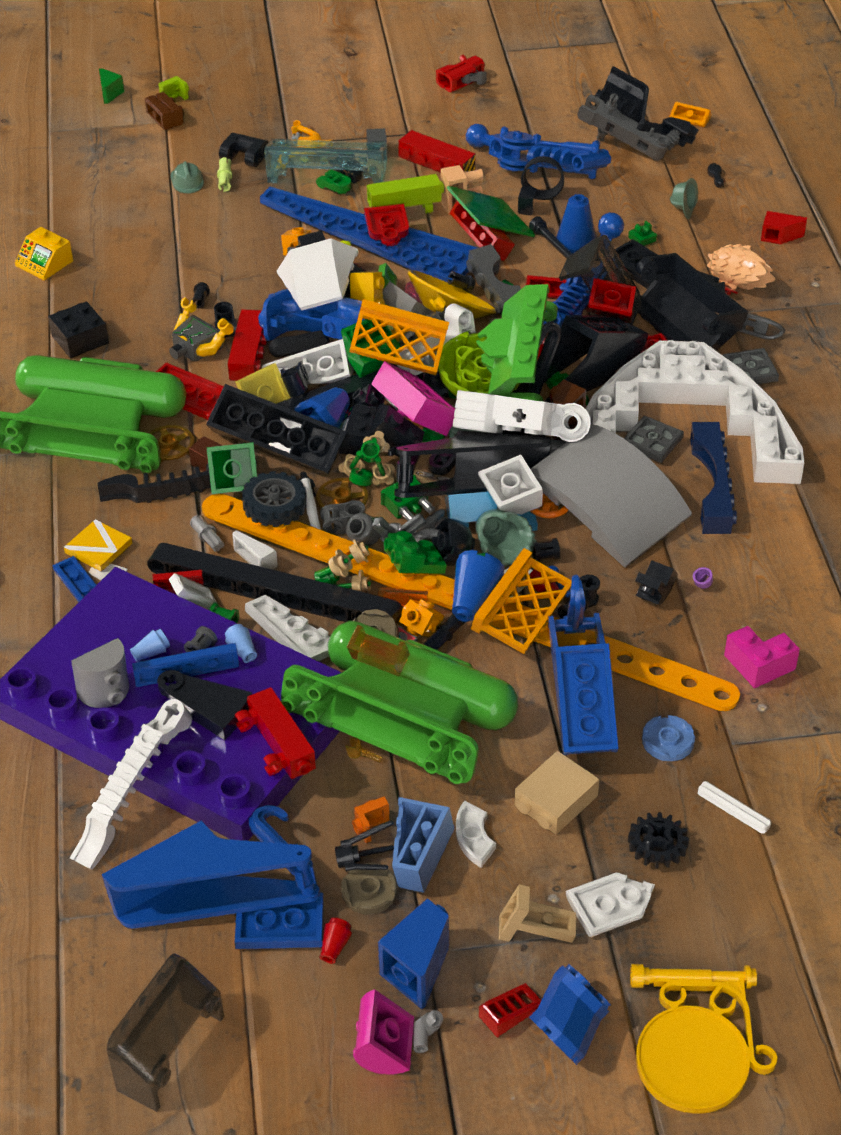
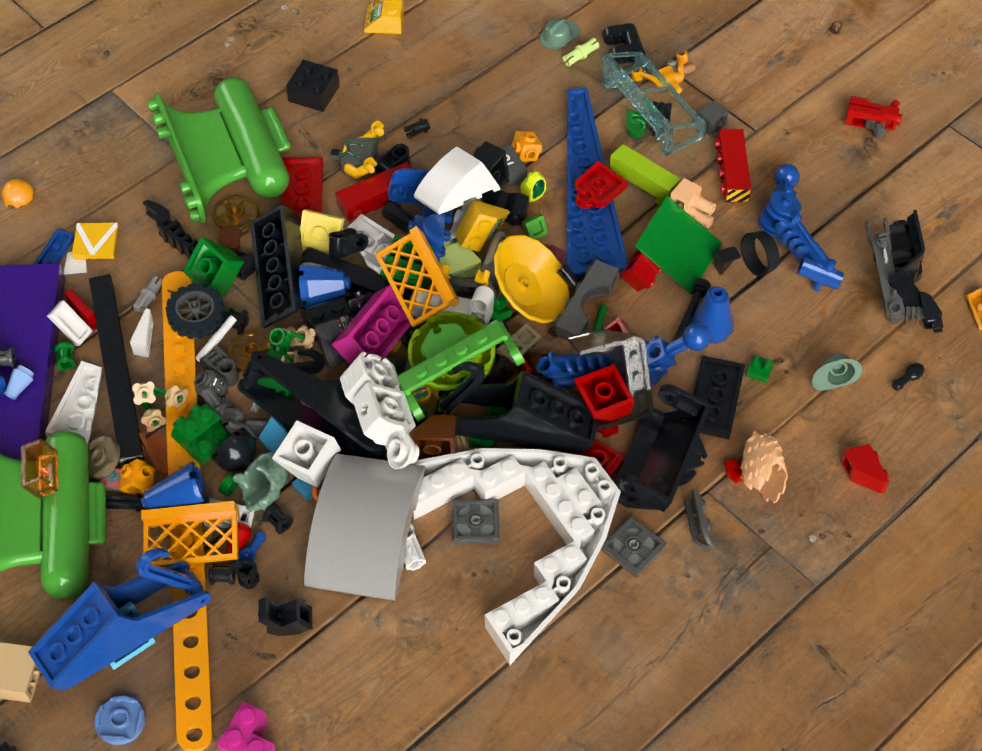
camera: 55 degrees right, 10 degrees up
(700, 576) = (322, 646): medium lavender hinge -> none
(717, 506) = (415, 615): dark blue arch -> none

